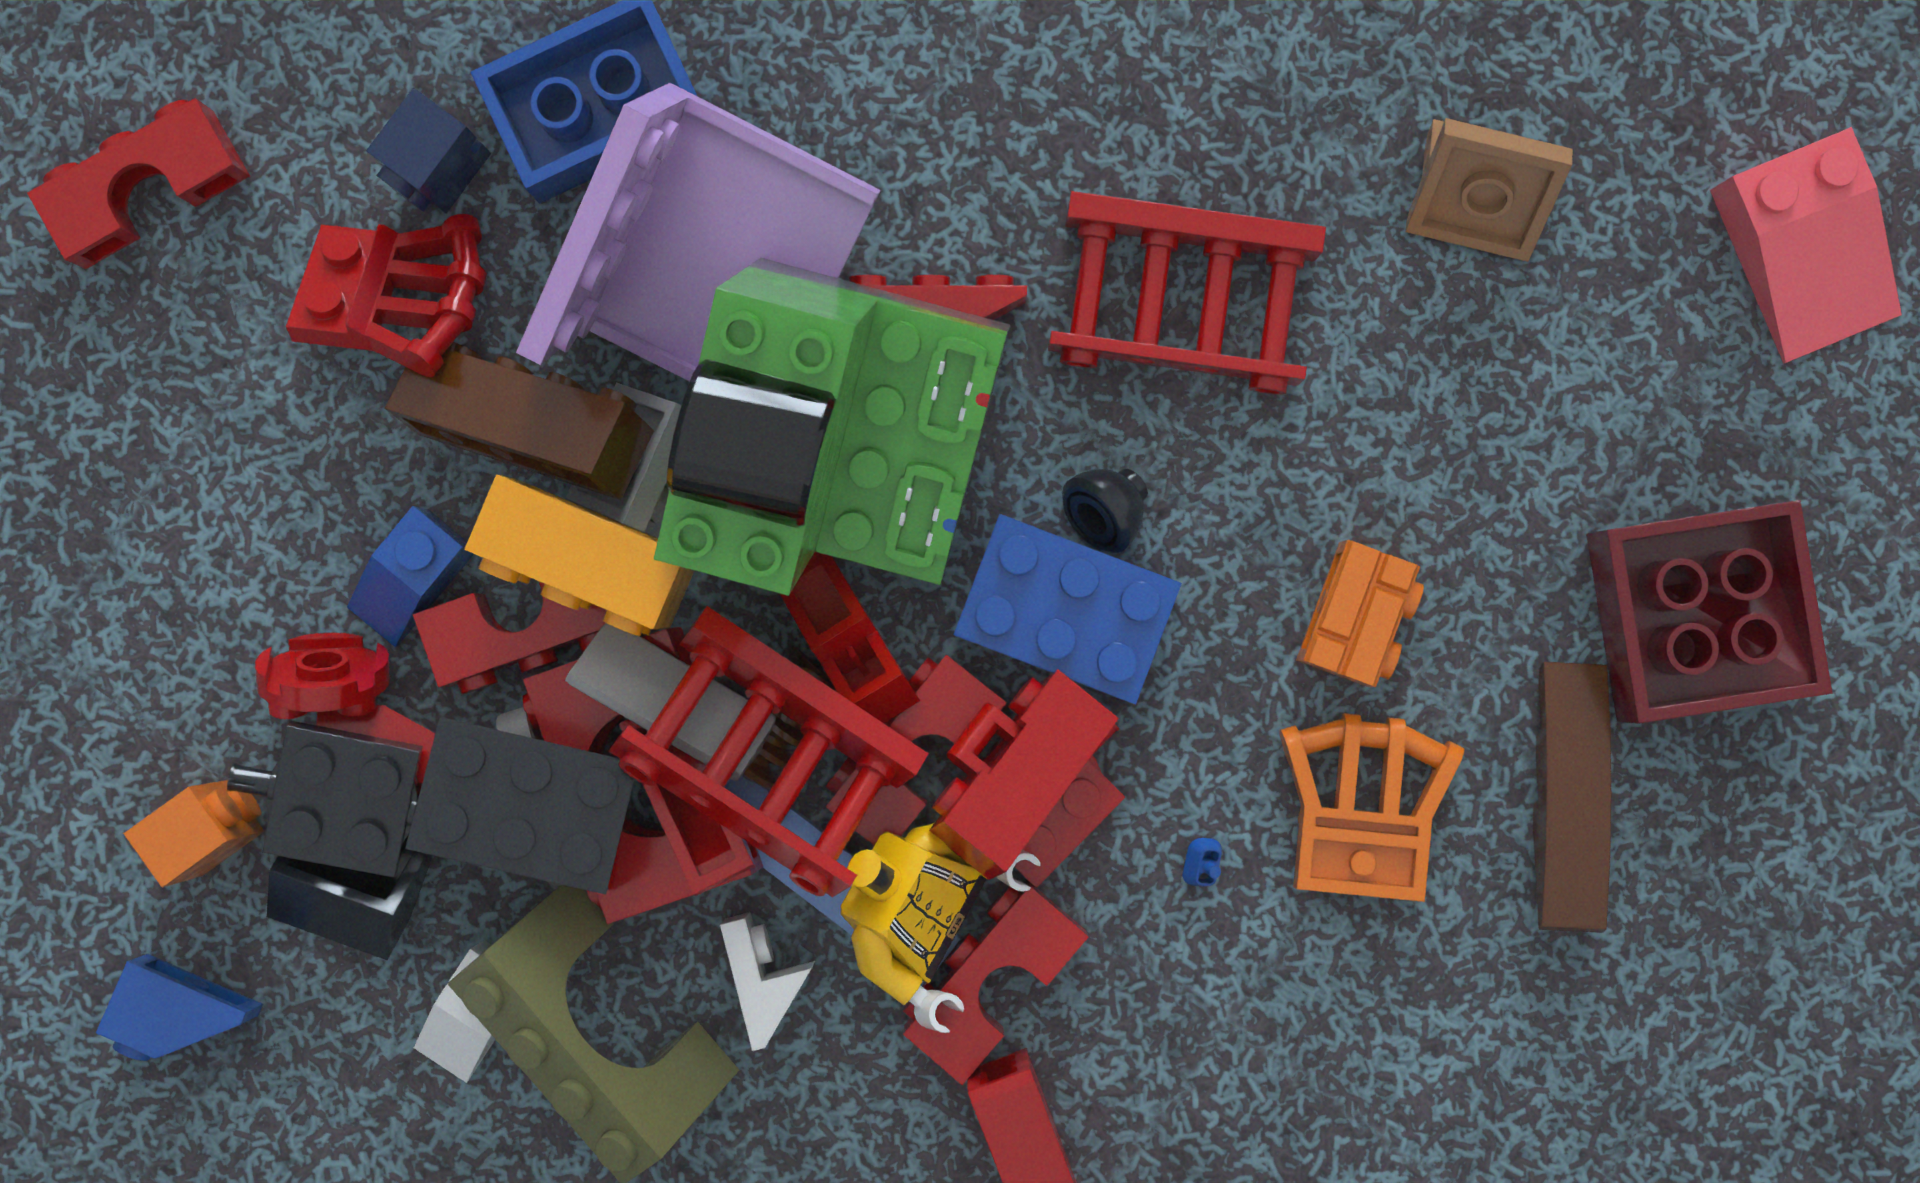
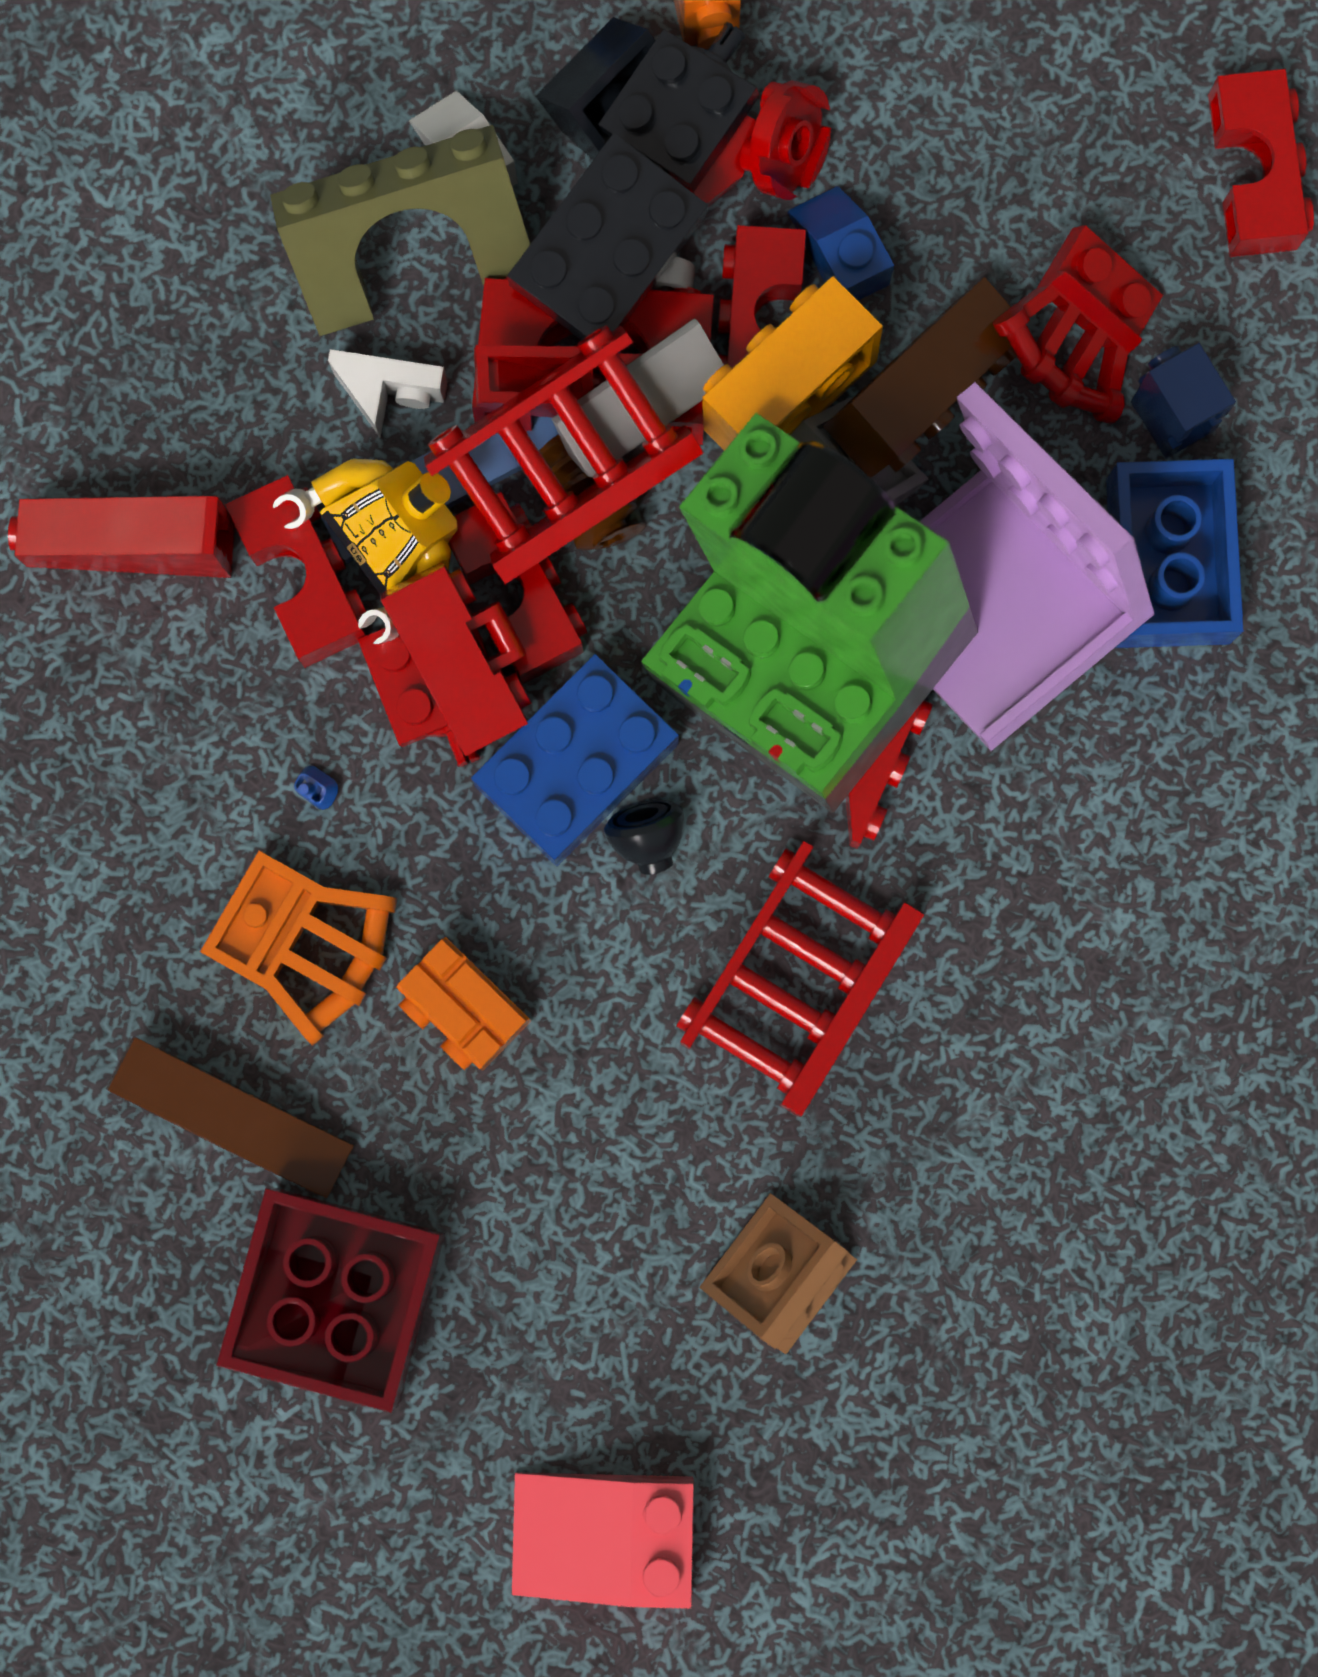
camera: 115 degrees right, 5 degrees down
(848, 641) = (627, 569): red slope -> none

